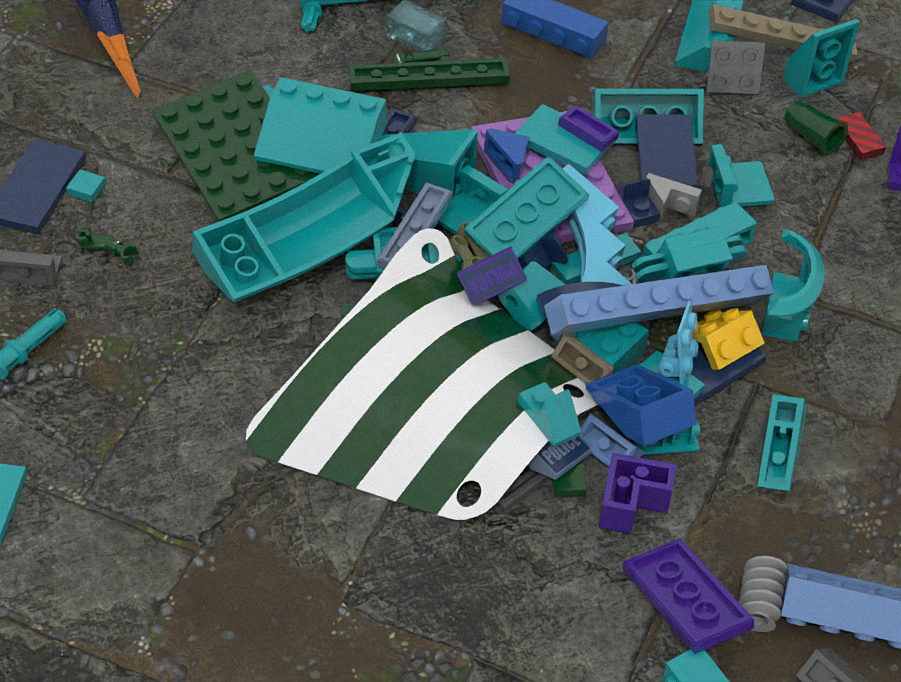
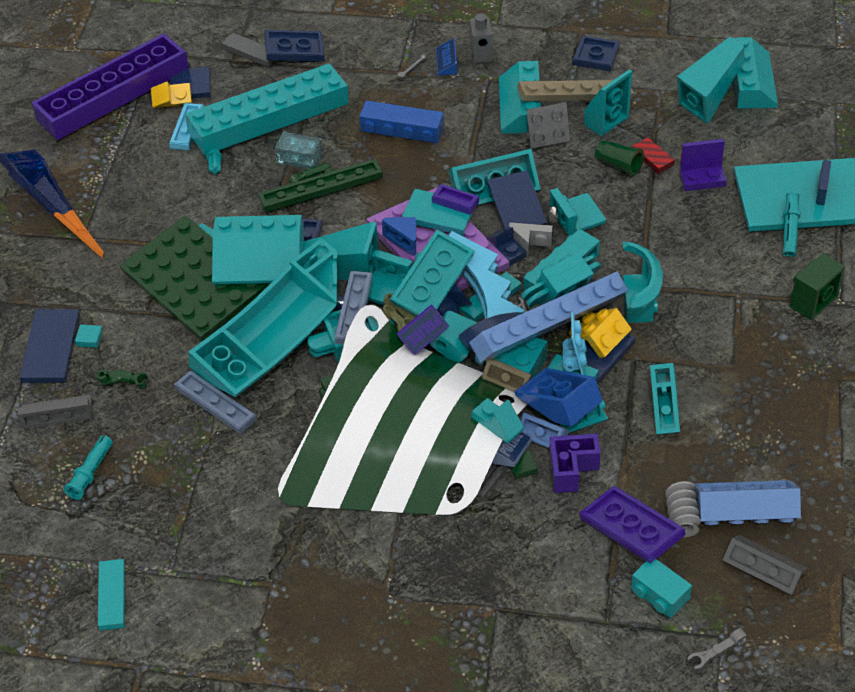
camera: 10 degrees left, 0 degrees up
(210, 303) = (215, 402): none -> sand blue tile

